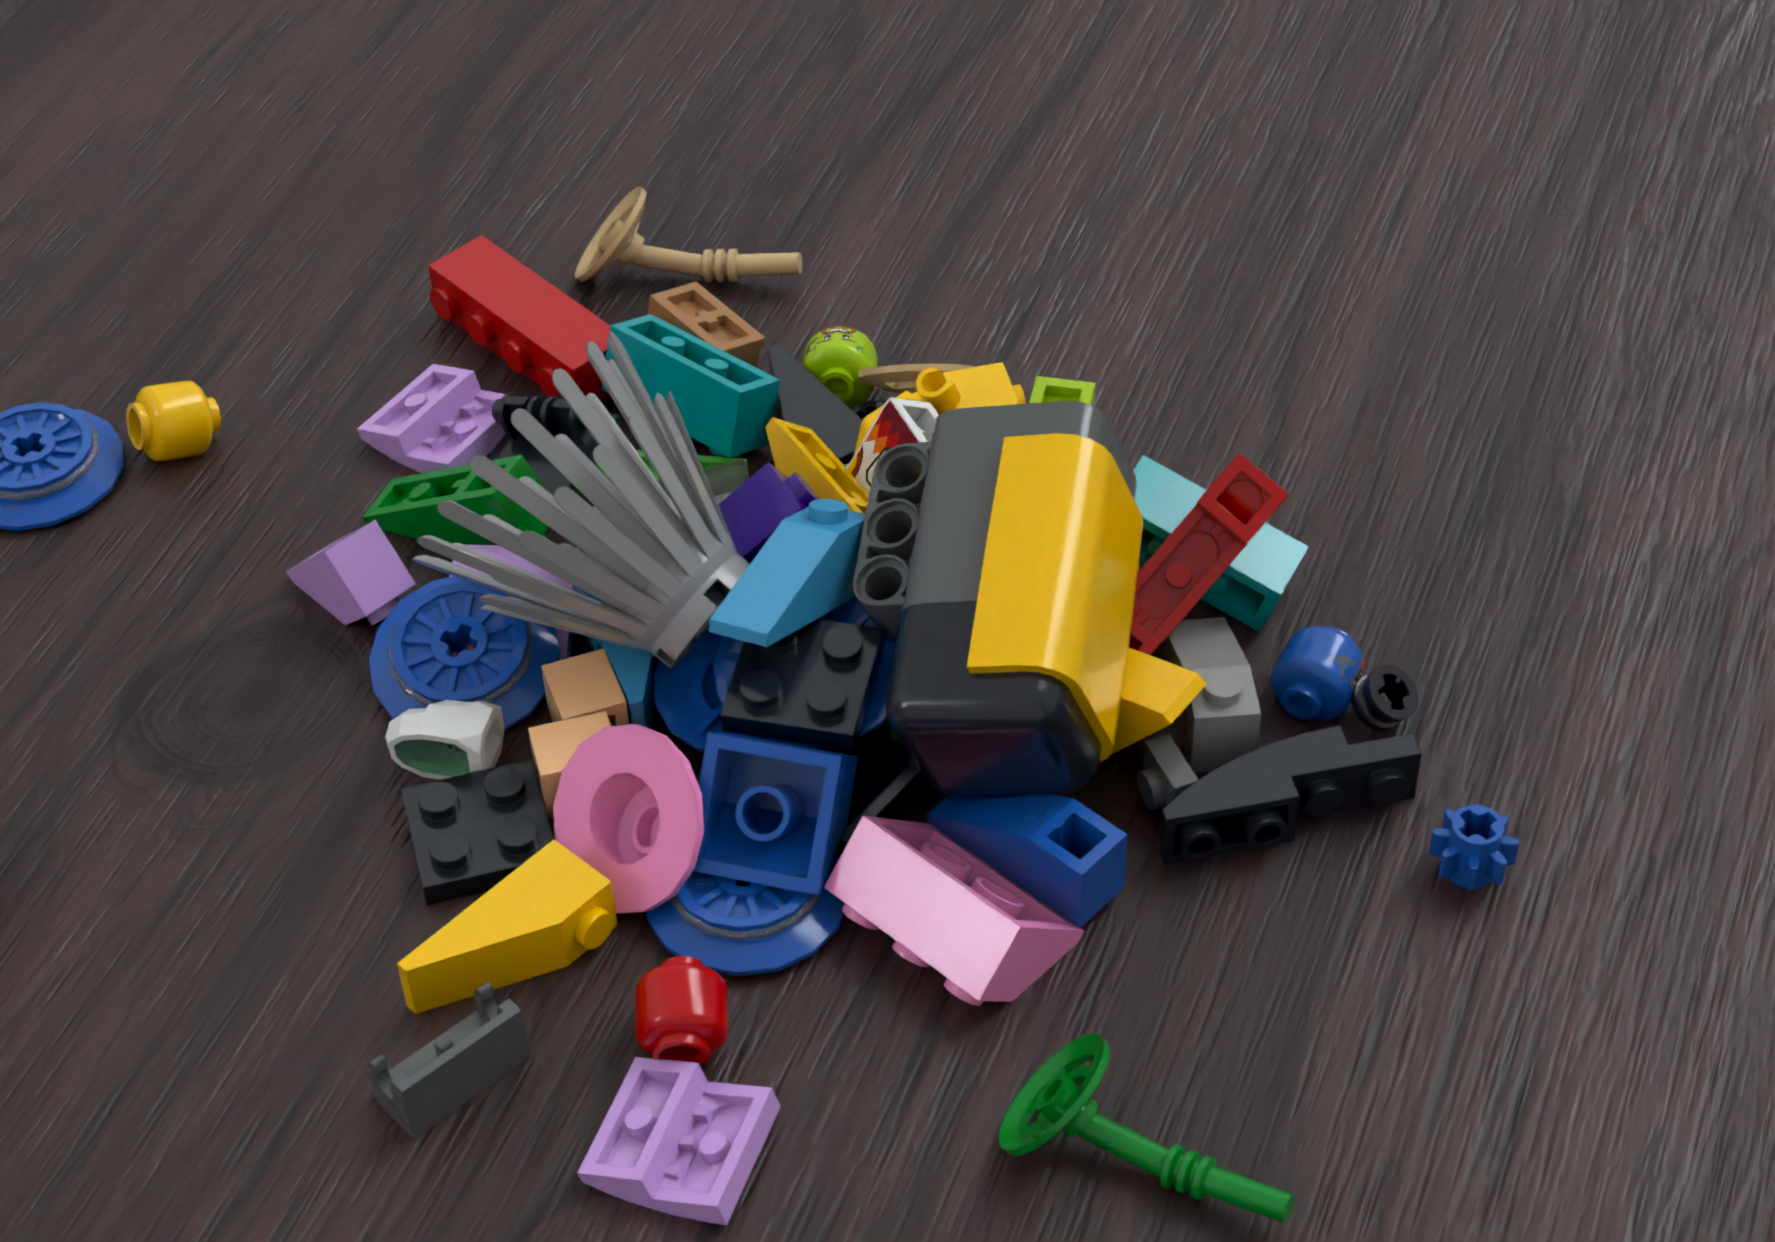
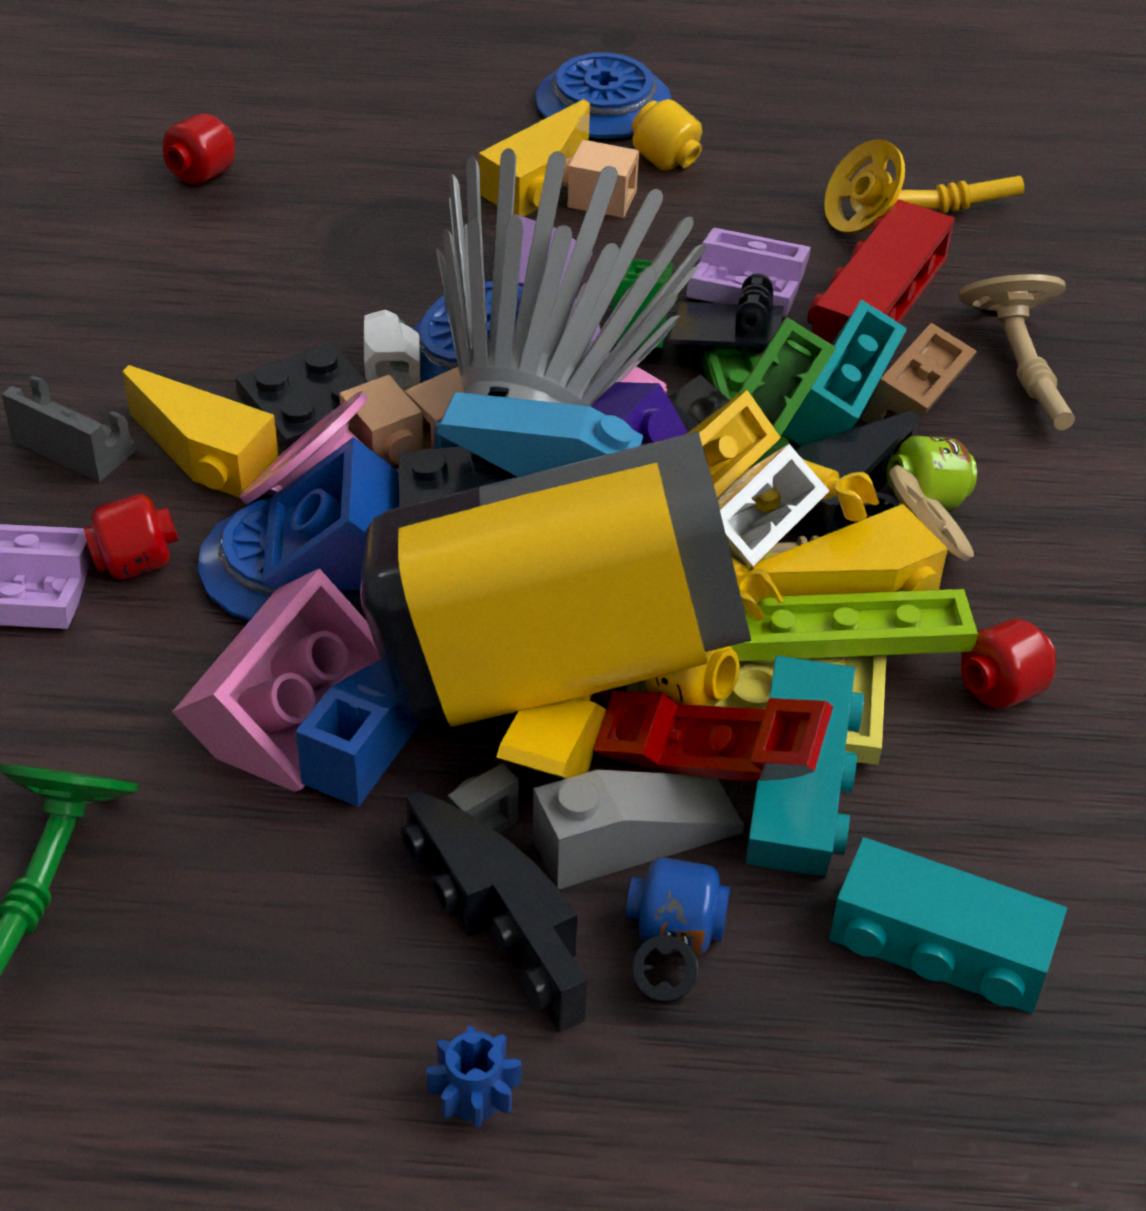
camera: 70 degrees right, 0 degrees up
(161, 542) = (532, 148): none -> yellow slope
(223, 493) = (584, 170): none -> light nougat brick
(385, 276) = (875, 194): none -> yellow dish
(721, 404) = (786, 372): none -> bright green torso
(1118, 382) = (1009, 664): none -> red head
(1381, 511) = (947, 924): none -> teal brick

